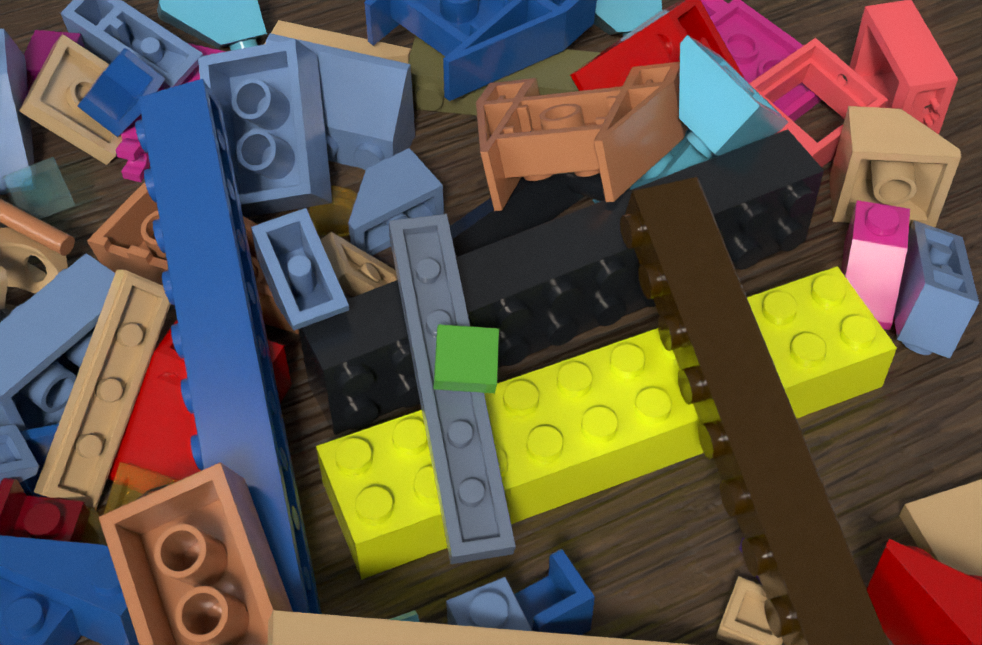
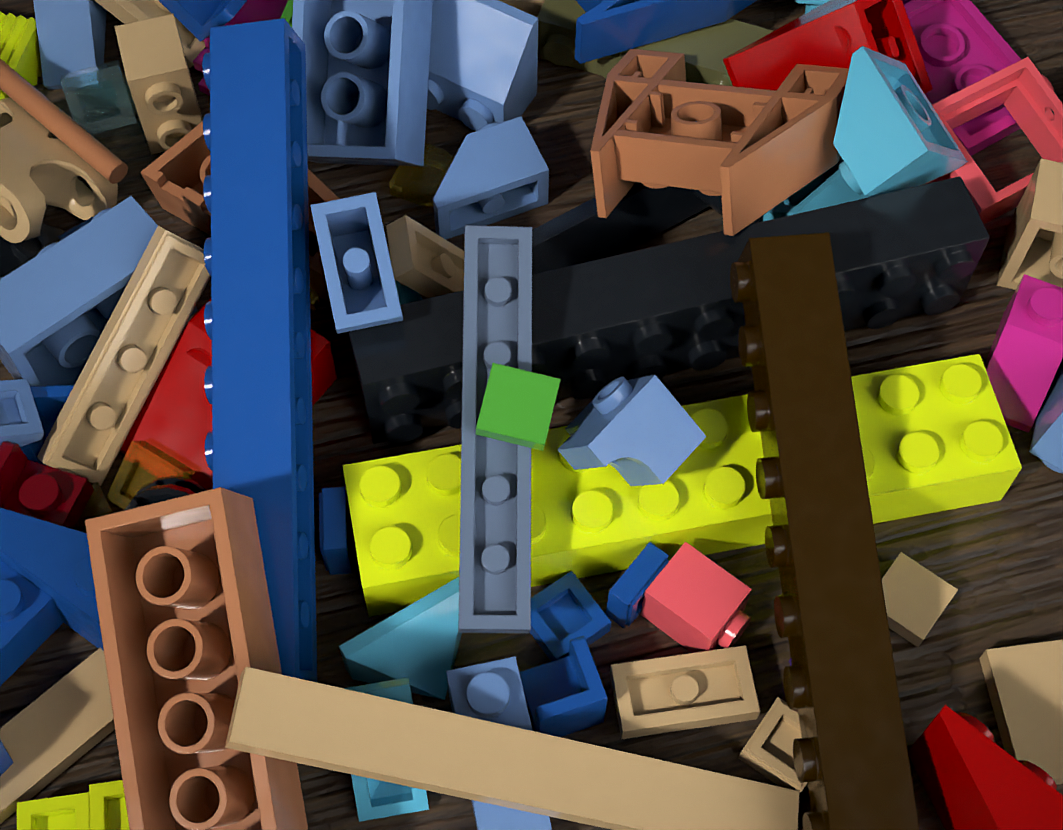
camera: 10 degrees right, 10 degrees up
(90, 166) = (159, 80): none -> tan brick
(318, 508) = (335, 530): none -> blue tile
(408, 583) = (410, 644): none -> medium azure slope
(535, 539) = (564, 613): none -> blue tile
(568, 365) = (633, 429): none -> medium blue brick
(595, 505) = (628, 592): none -> blue tile
(650, 510) = (697, 602): none -> coral brick
(656, 587) = (684, 692): none -> tan plate
(838, 472) = (914, 598): none -> tan tile

